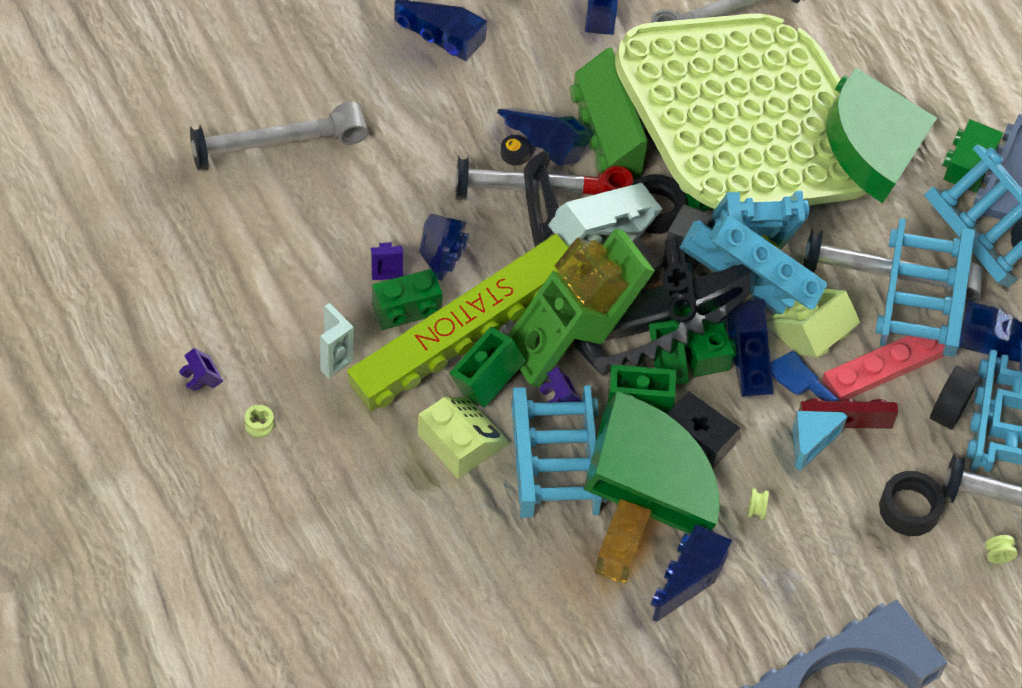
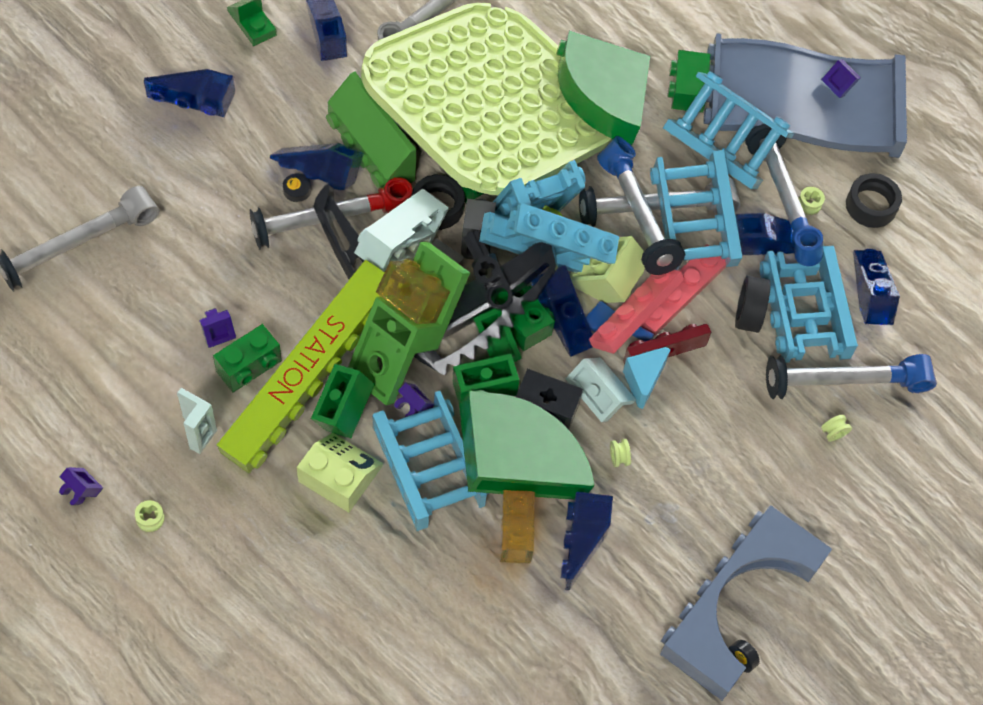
camera: 20 degrees left, 5 degrees up
(443, 244) = (263, 297): clear blue slope -> none
(760, 434) = (600, 387): none -> light aqua panel
(827, 367) = (635, 311): none -> coral plate
(870, 316) = (662, 254): none -> piece
(919, 483) = (755, 391): black tyre -> none

